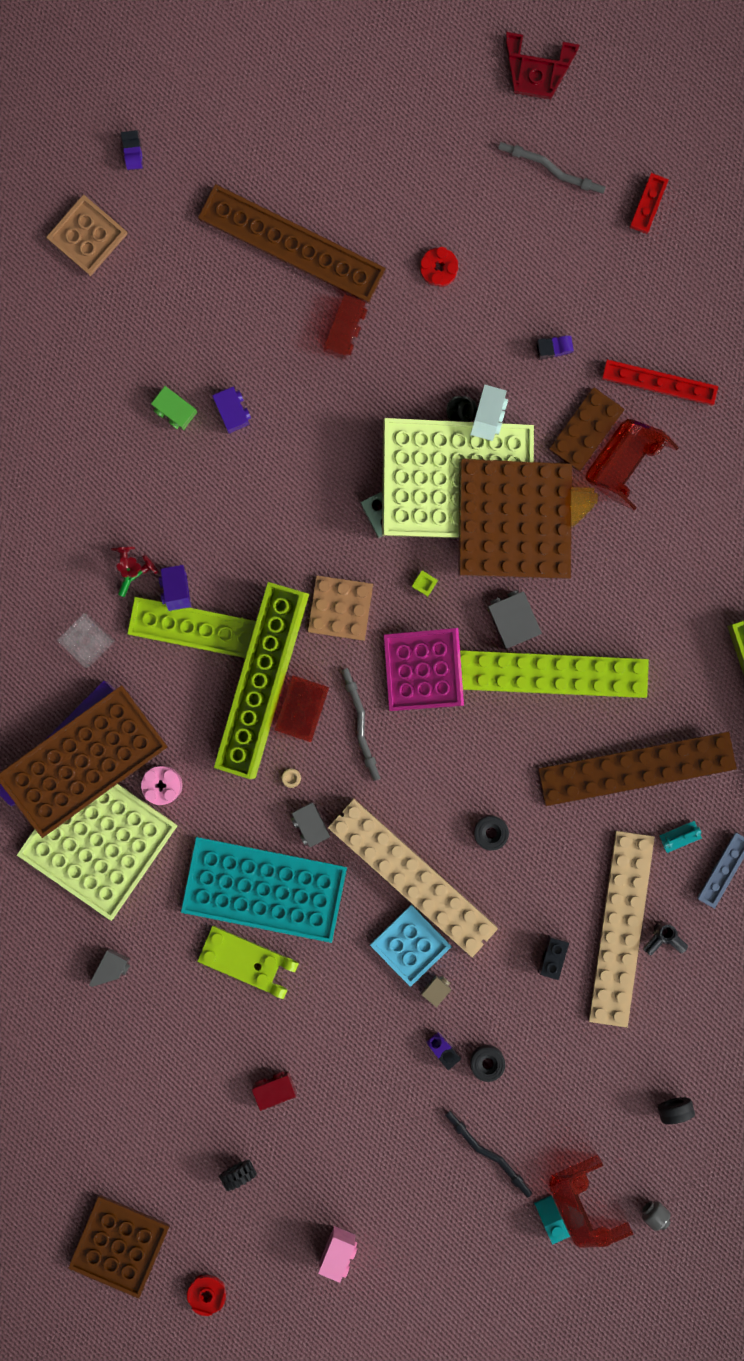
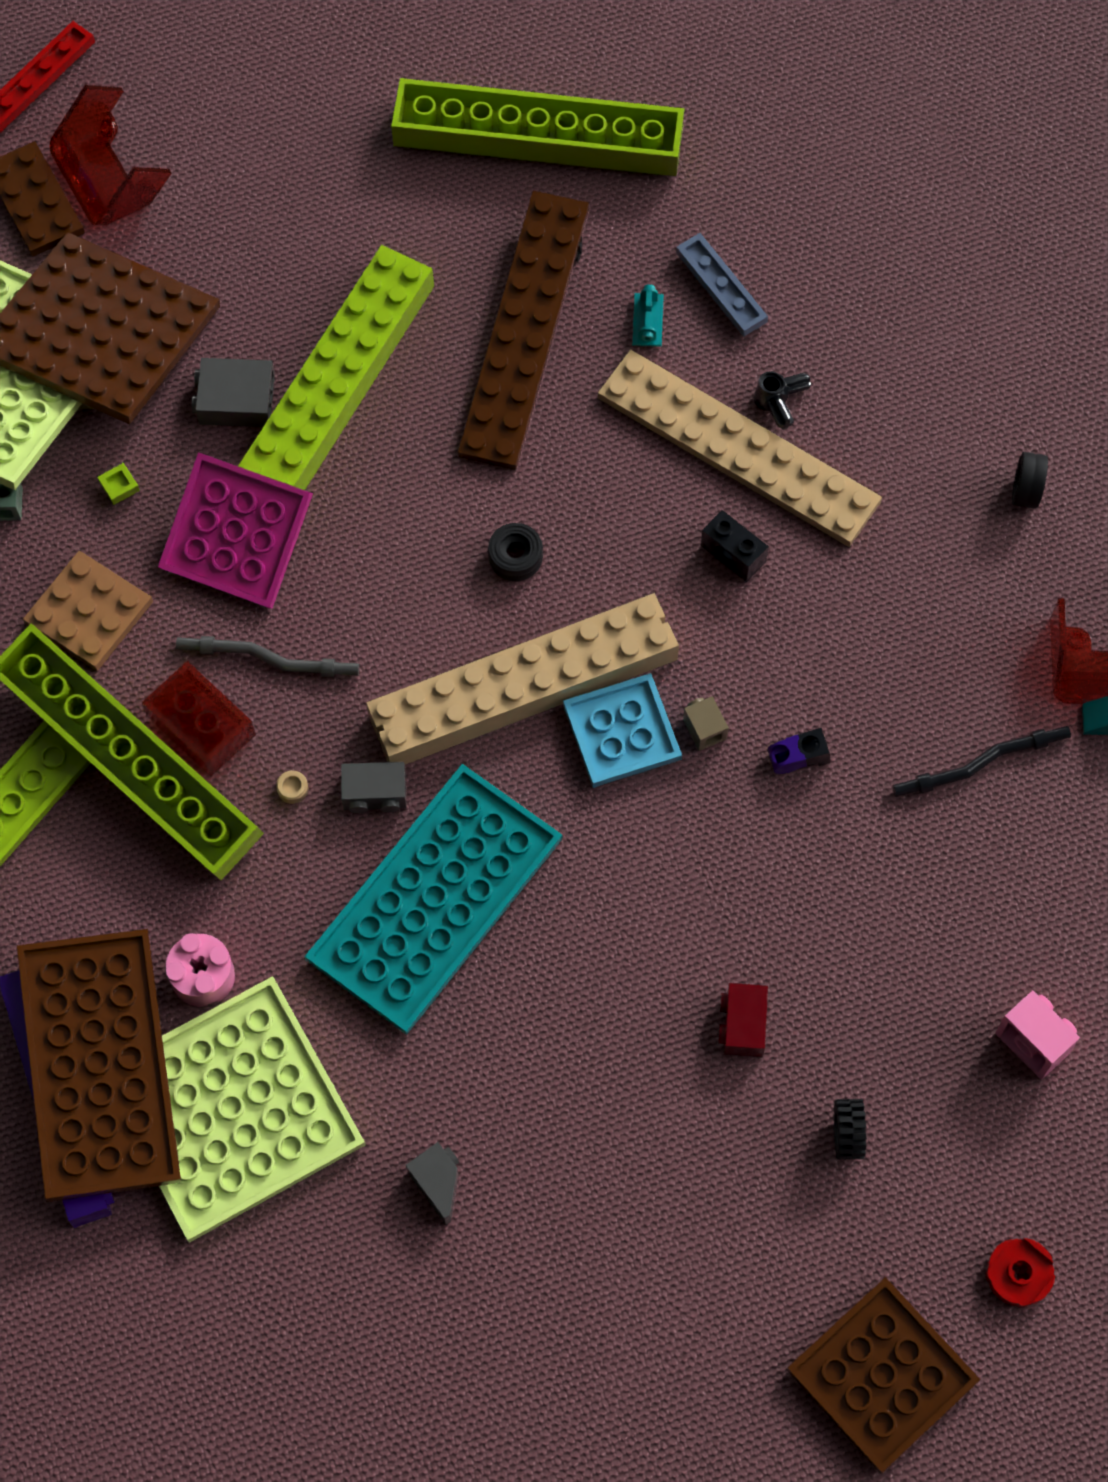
camera: 65 degrees left, 20 degrees down
(237, 959) = (517, 981): lime hinge -> none
(490, 1074) = (846, 719): black tyre -> none
(581, 503) = (126, 239): clear yellow slope -> none

